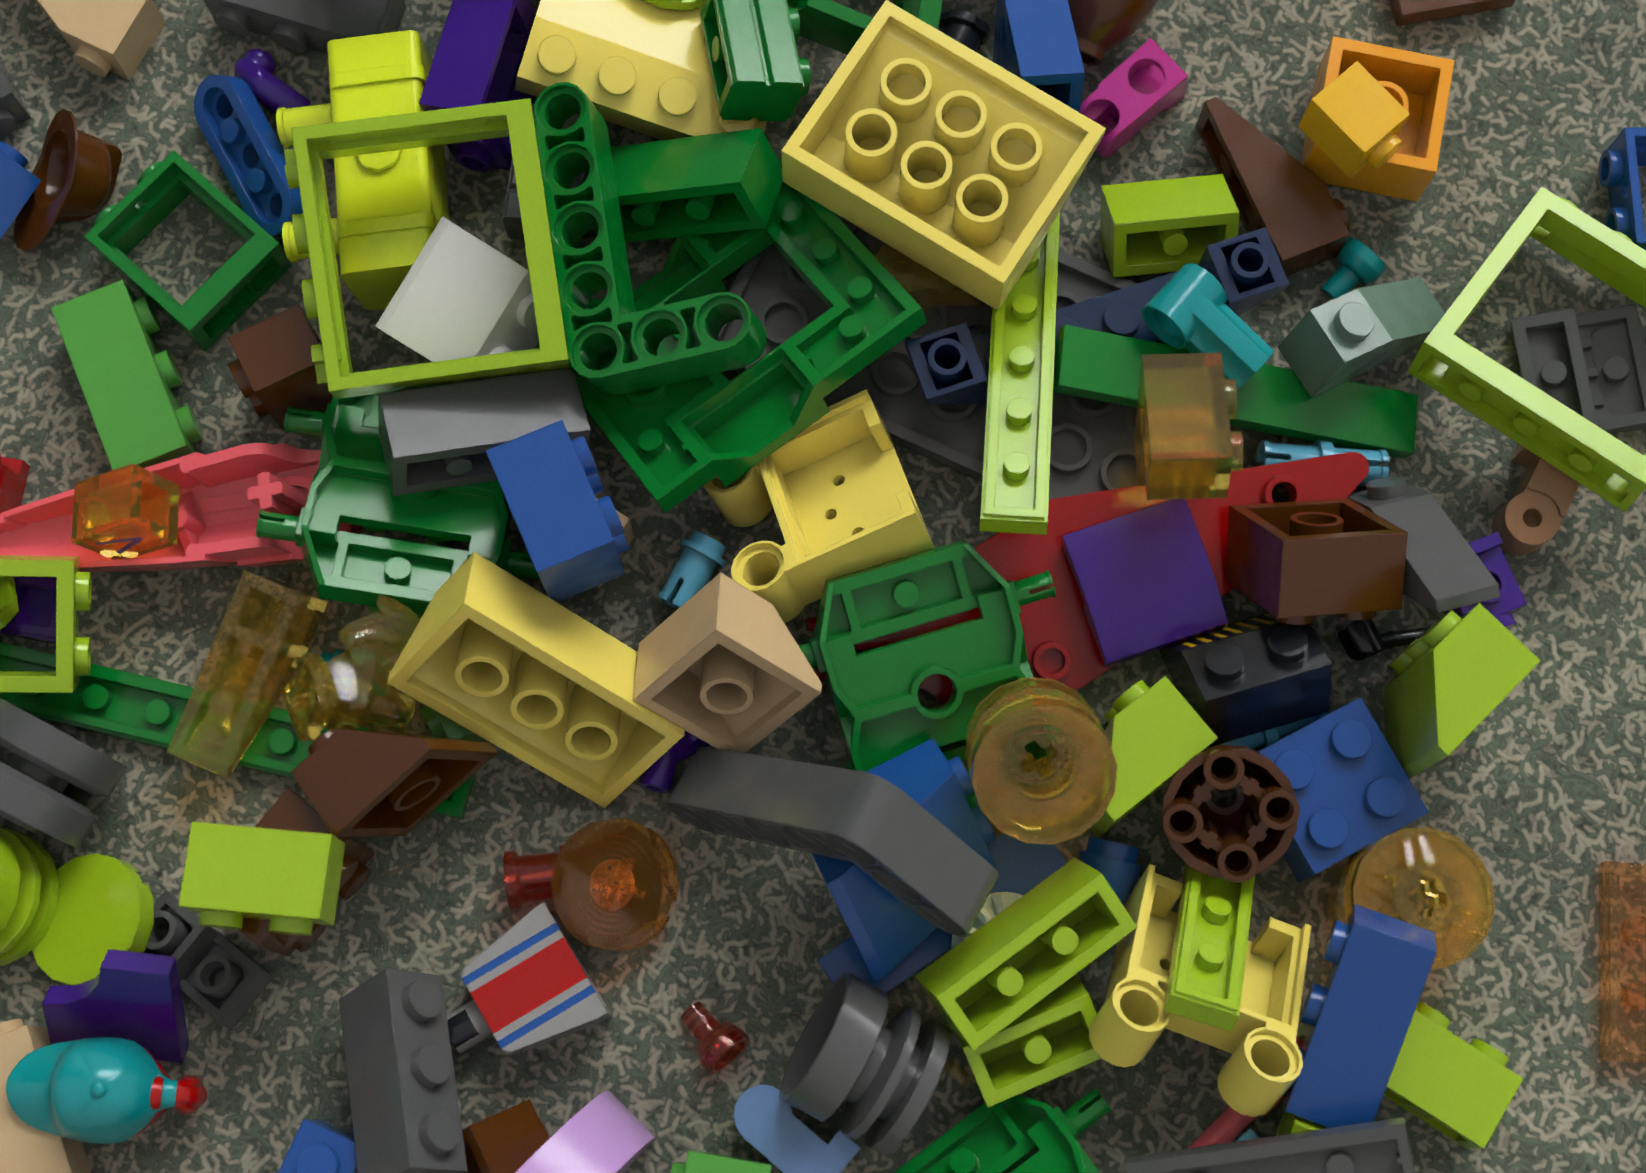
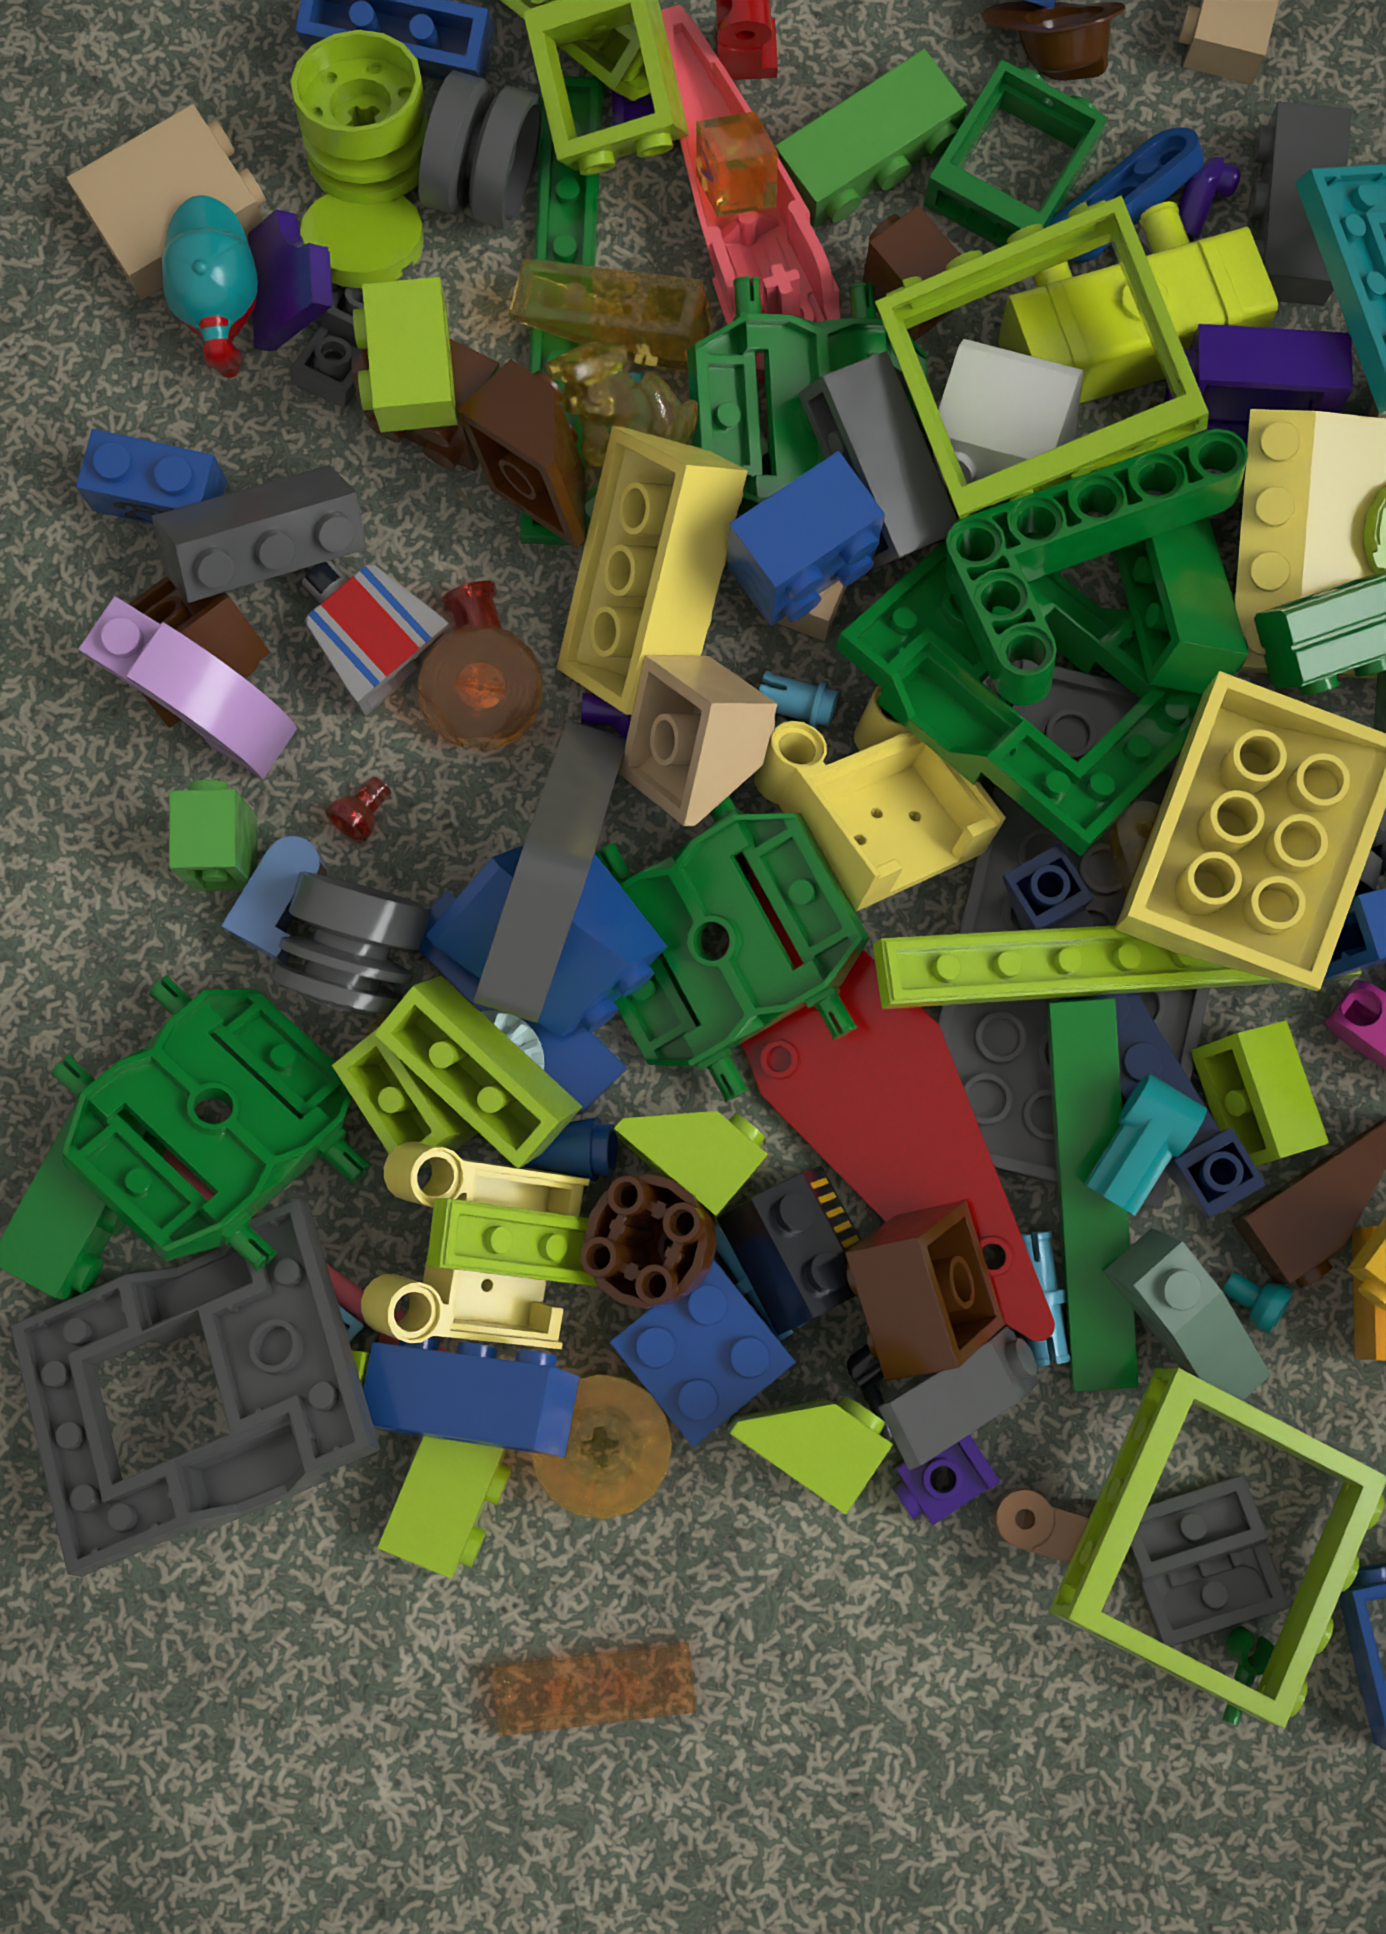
camera: 80 degrees right, 5 degrees up
(1047, 796) = (628, 1046): clear yellow wheel -> none
(1145, 581) = (873, 1131): dark purple slope -> none
(1185, 427) = (1024, 1131): clear yellow brick -> none

